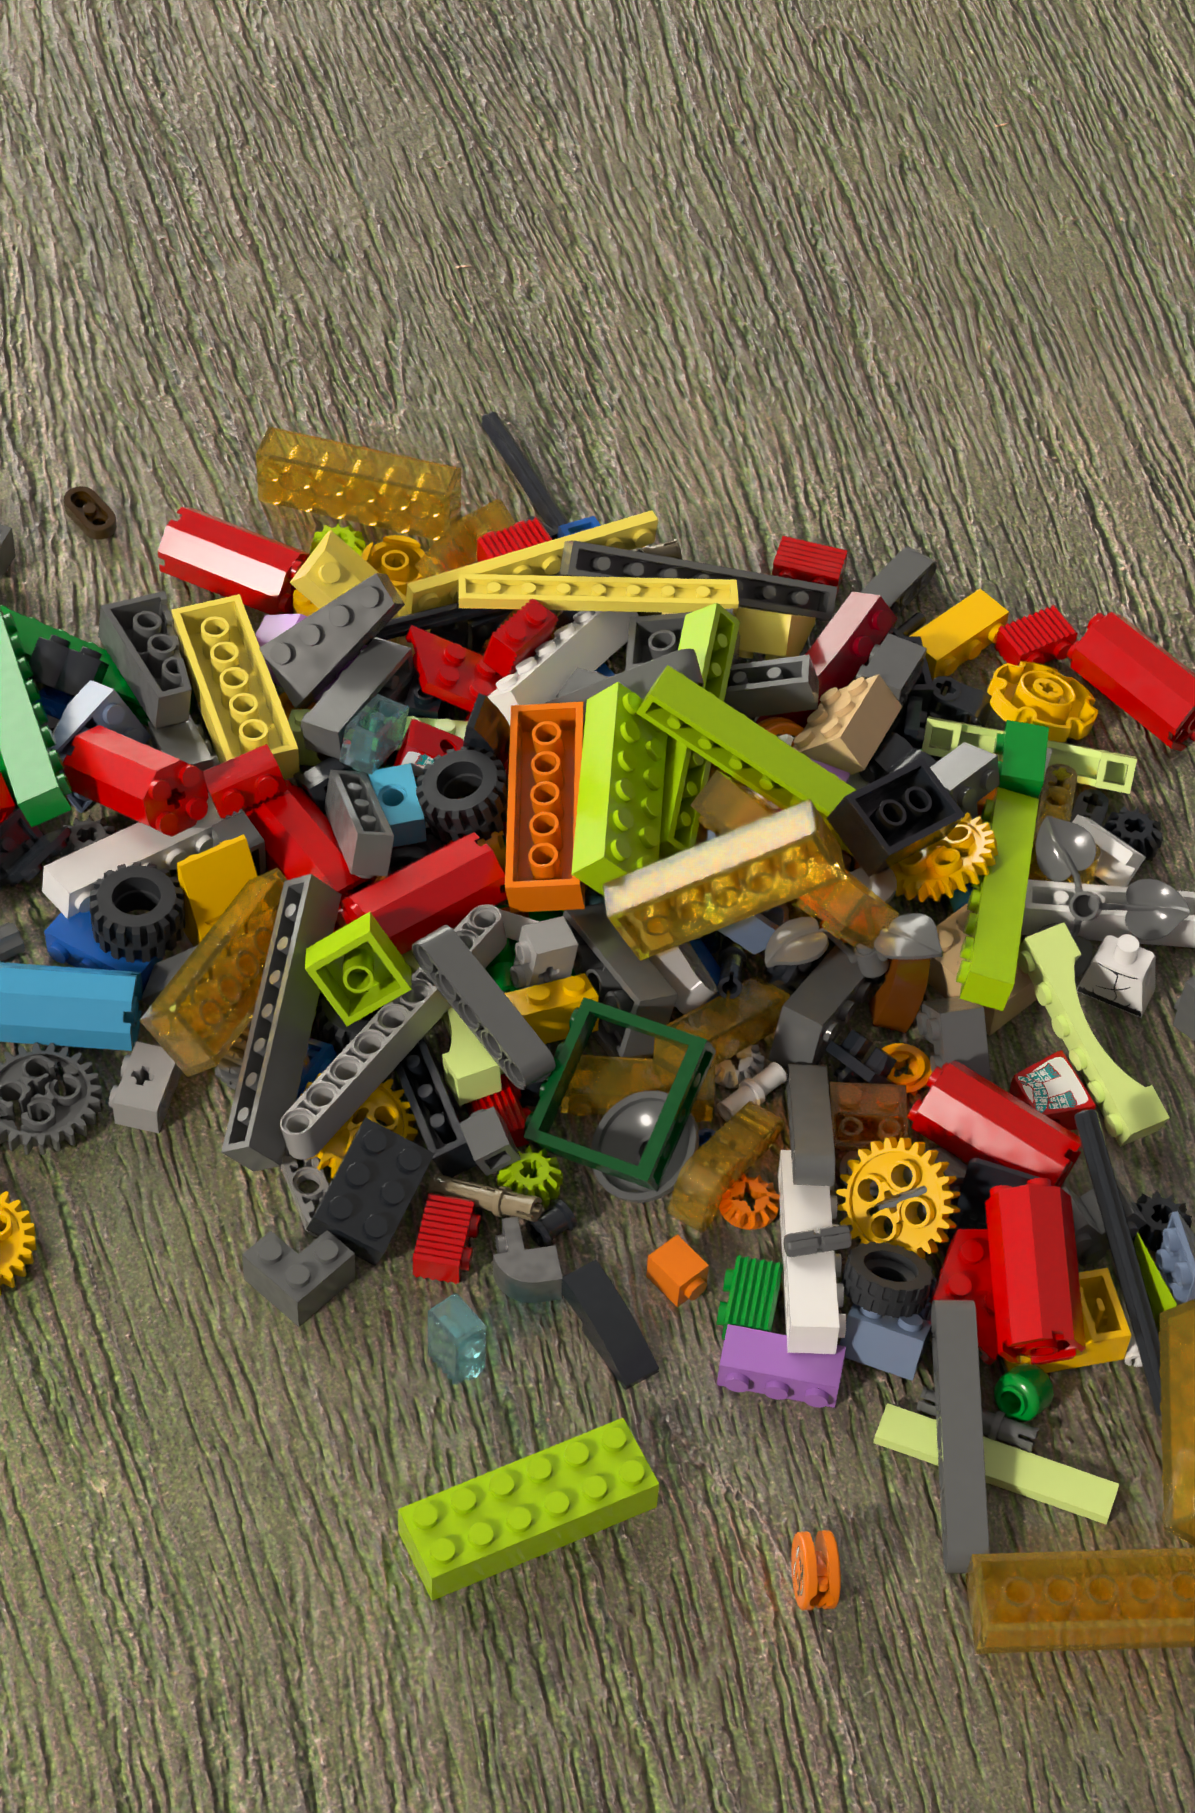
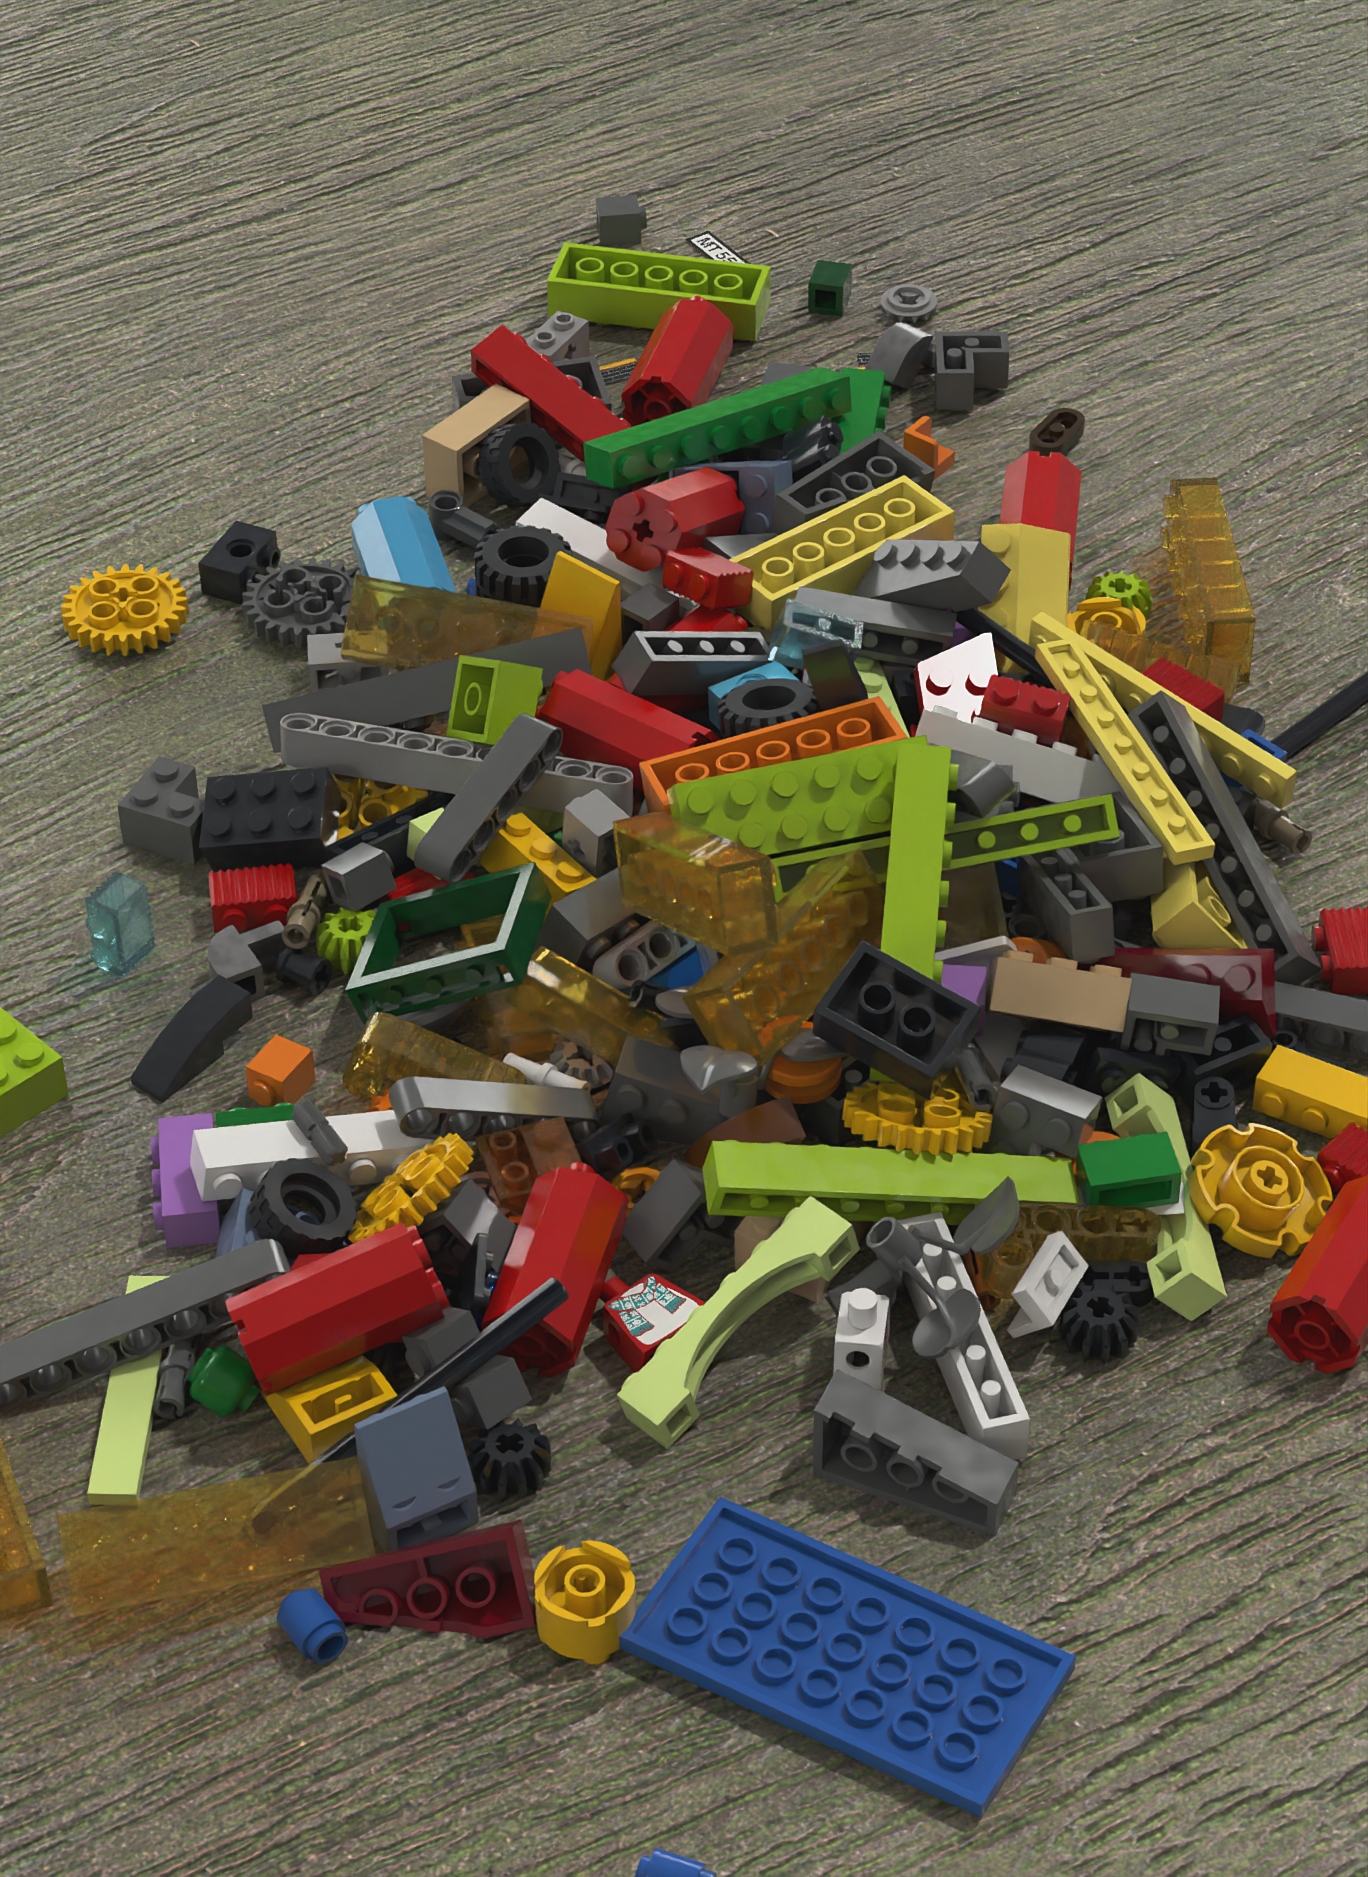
camera: 75 degrees right, 10 degrees down
(70, 604) = (921, 445): none -> orange panel

